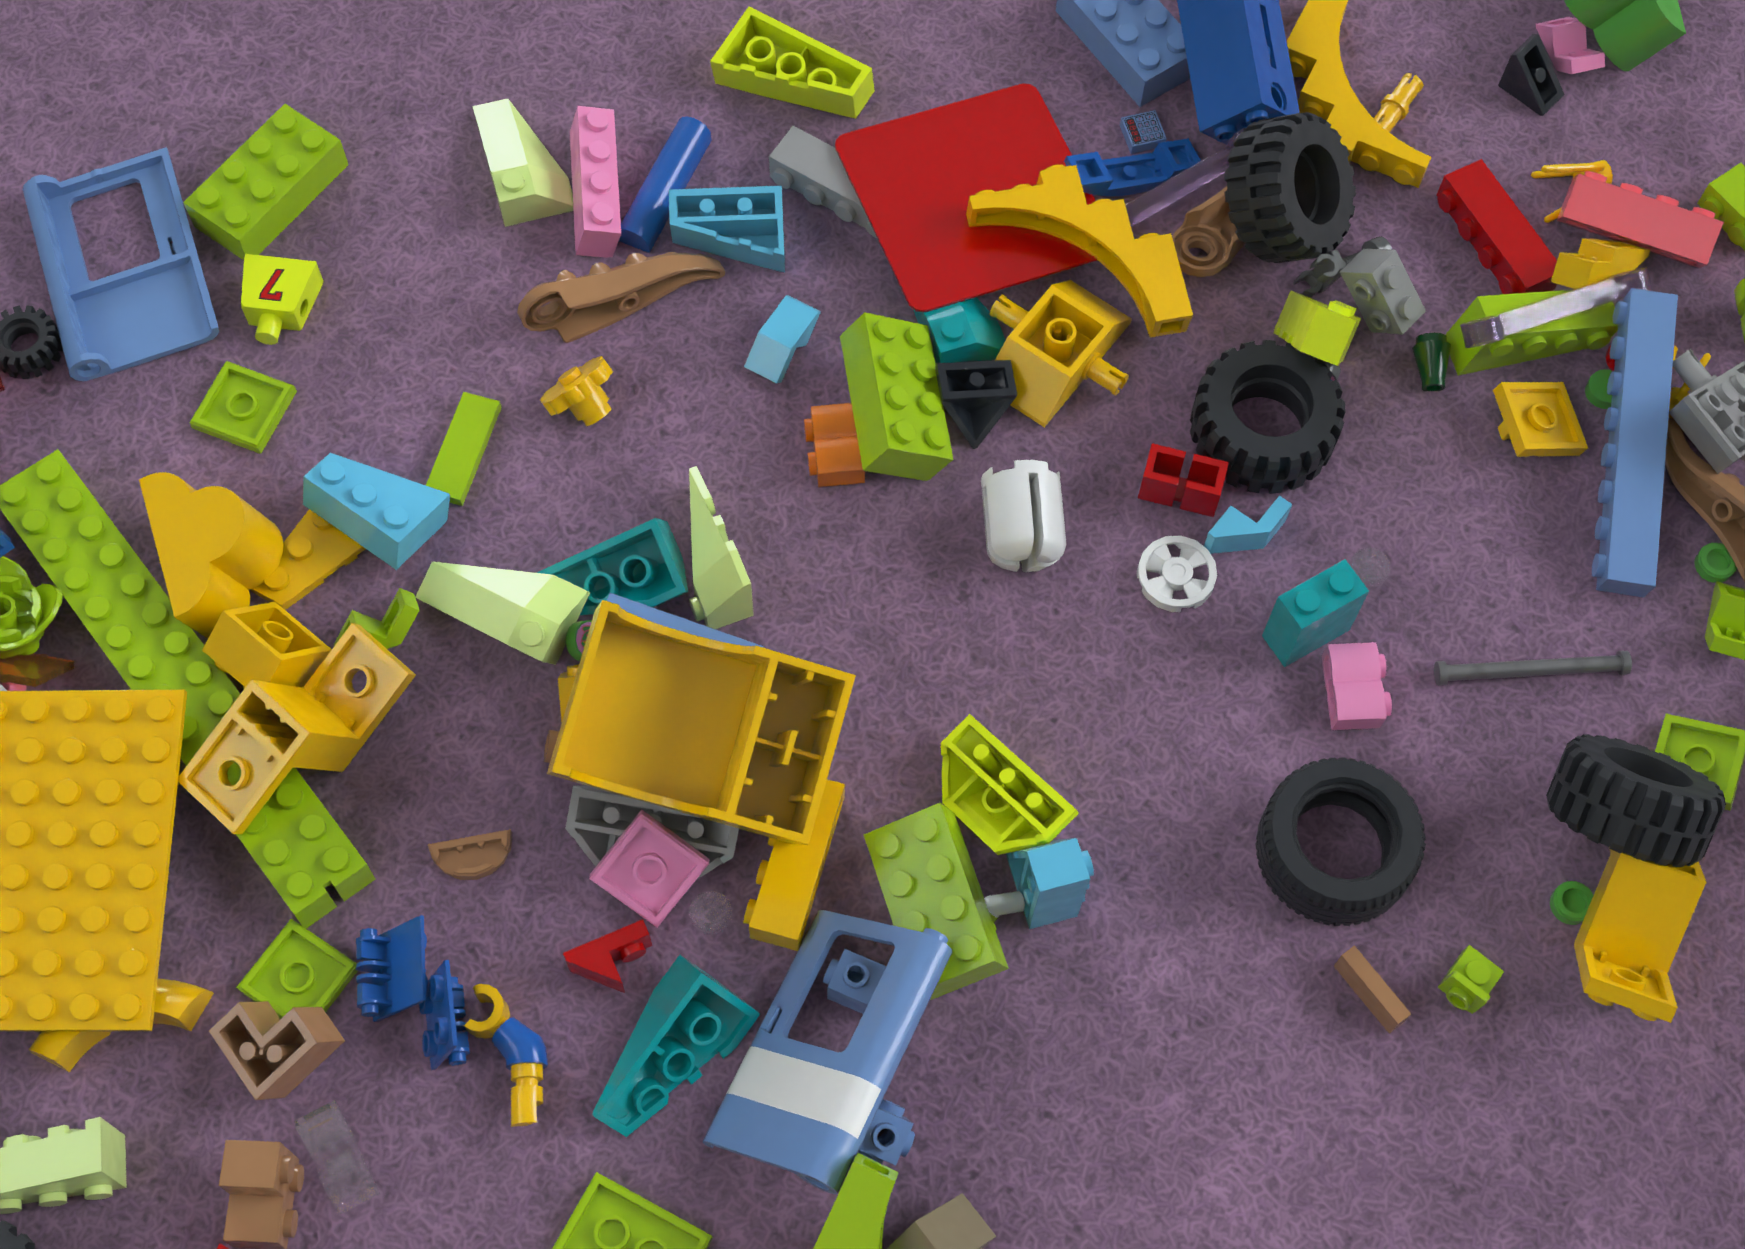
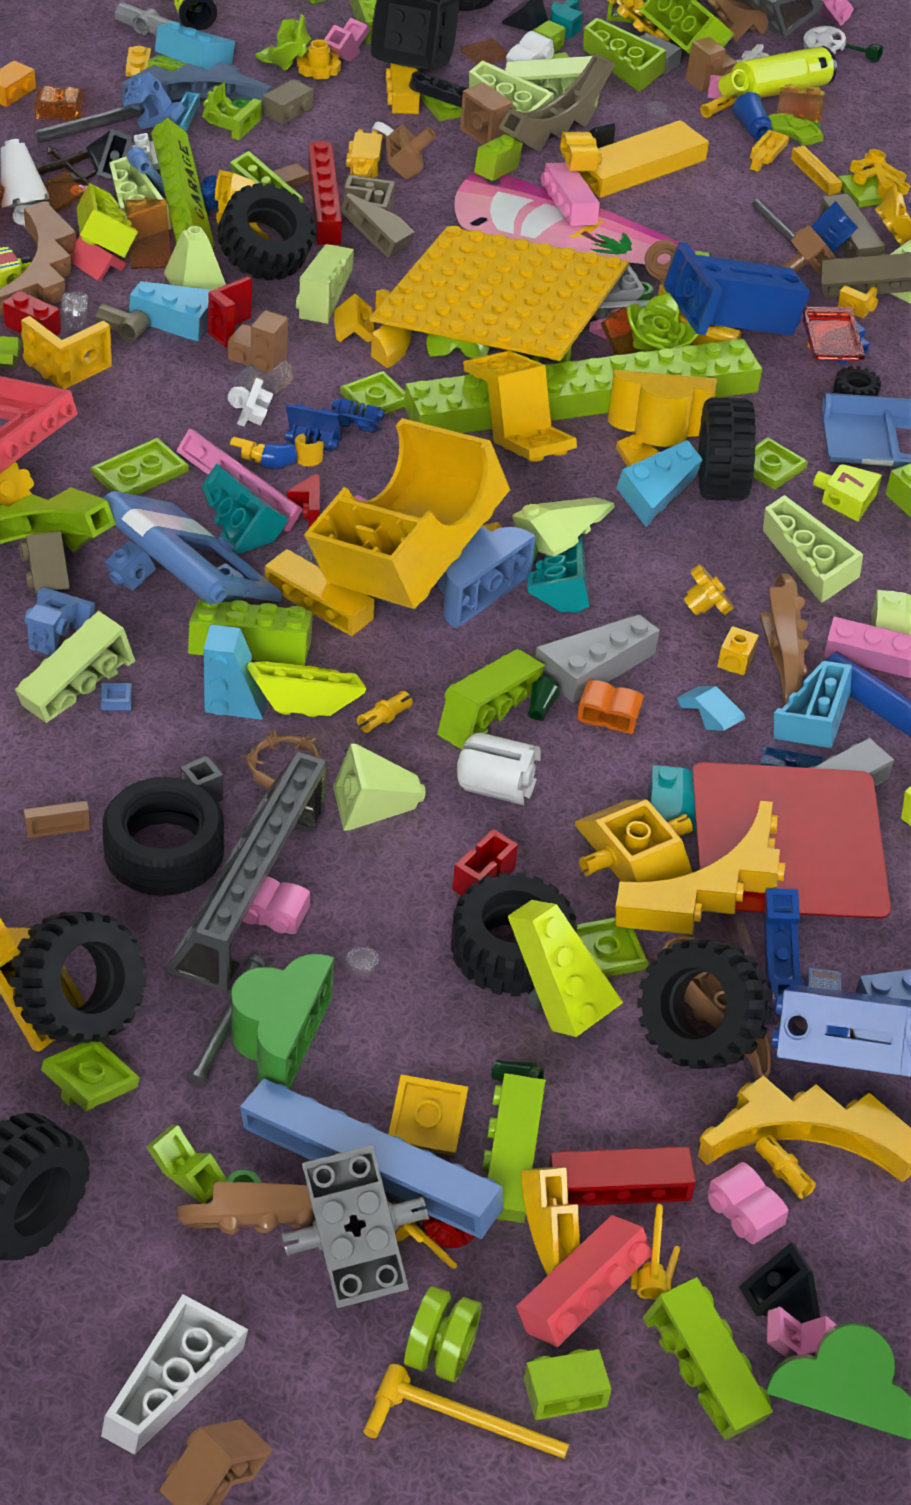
camera: 110 degrees right, 20 degrees down
(116, 1086) = (353, 317): none -> yellow panel
(265, 646) = (582, 411): yellow brick -> none
(275, 1052) = (337, 364): medium nougat brick -> none
(297, 416) = (727, 449): none -> black tyre
(395, 623) = (576, 468): lime slope -> none
(409, 1148) = (253, 403): none -> white hips
(434, 301) = (811, 548): none -> yellowish green wedge
(464, 446) = (695, 543): lime tile -> none
(578, 1129) = (205, 456): none -> bright pink tile
(667, 336) = (738, 650): none -> yellow brick
(719, 575) = (548, 618): yellowish green wedge -> none
(759, 482) = (598, 654): none -> light grey wedge
(818, 244) = (786, 758): none -> clear blue piece
(857, 524) = (543, 695): none -> dark green cone
(895, 397) = (626, 732): lime brick -> none
(896, 573) = (487, 696): none -> lime wedge
(975, 693) = (384, 711): none -> yellow pin
(976, 394) = (613, 775): black slope -> none
(1067, 1178) = (47, 623): none -> medium blue tile
(1114, 1036) = (116, 696): none -> medium blue tile
(1117, 1097) = (76, 667): none -> yellowish green wedge
(1132, 643) = (373, 788): none -> yellowish green slope
(1167, 777) = (270, 741): none -> medium nougat piece
(1176, 573) = (417, 850): white piece -> none
(1207, 337) = (613, 947): none -> lime tile
(1229, 839) = (206, 775): none -> dark grey brick
(1239, 533) = (430, 890): medium azure slope -> none
(1315, 612) = (334, 882): teal brick -> none
(1329, 265) = (629, 1030): dark grey bar -> none
(1347, 706) = (290, 802): none -> dark grey window
(1383, 291) = (589, 1047): light grey brick -> none
(1459, 124) = (747, 1202): none -> bright pink brick
(1470, 980) = (27, 874): lime bracket -> none
(1496, 327) = (514, 1212): piece -> none
(1520, 592) = (280, 1013): none -> bright green brick
(1649, 107) = (709, 1358): none -> lime wedge

